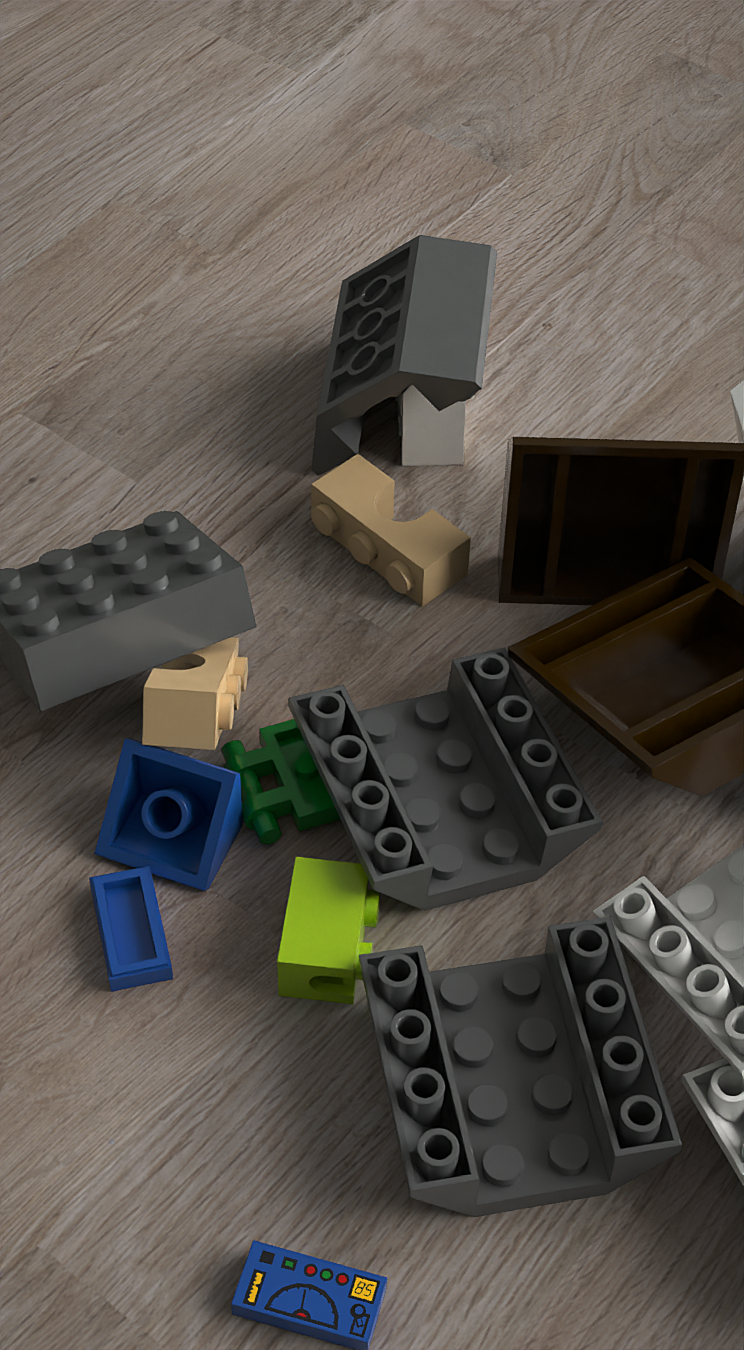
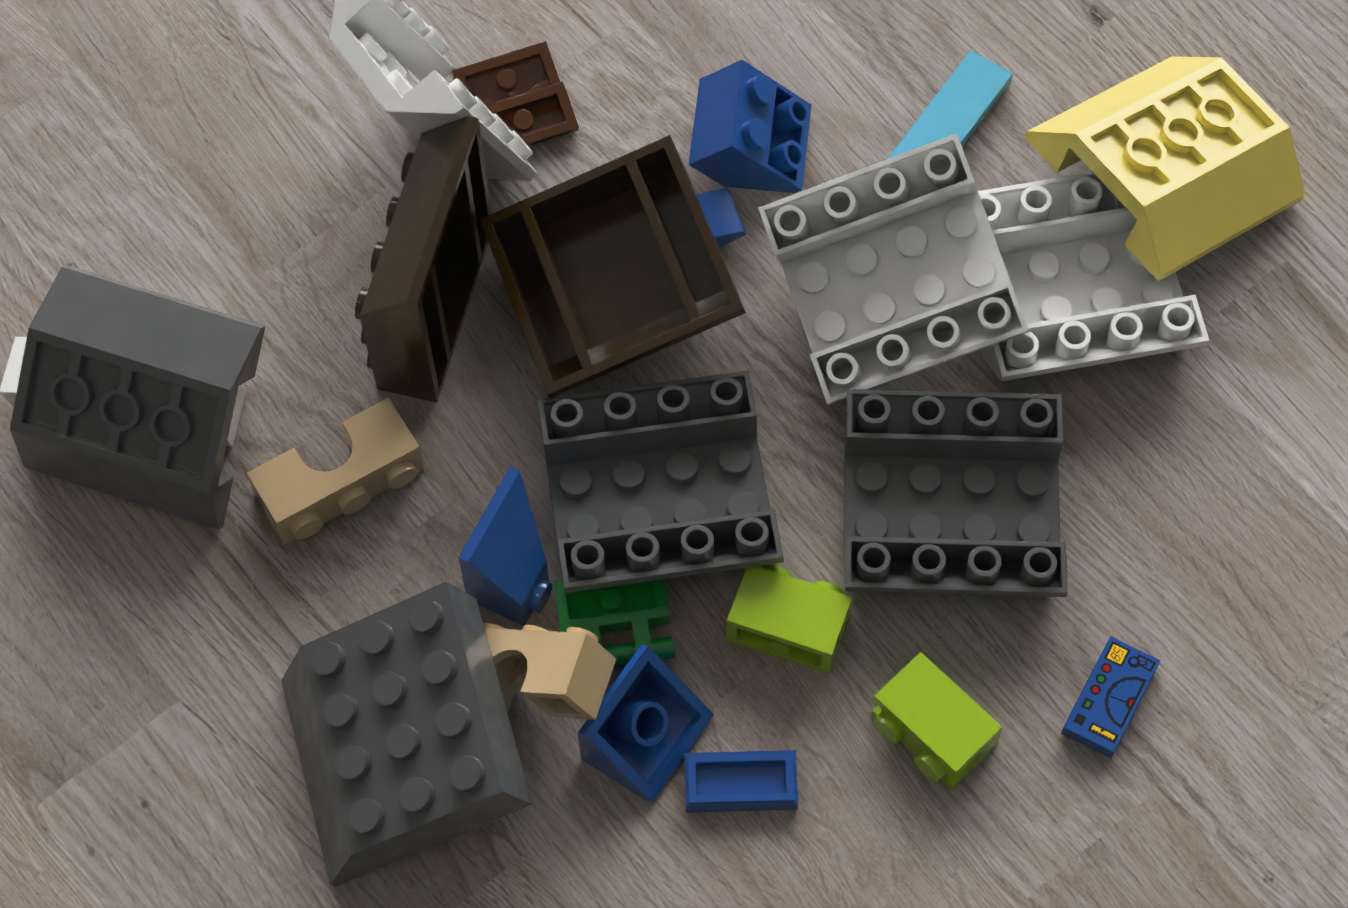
camera: 75 degrees left, 15 degrees up
(229, 1095) = (935, 722): none -> lime brick
(334, 645) = (505, 557): none -> blue slope

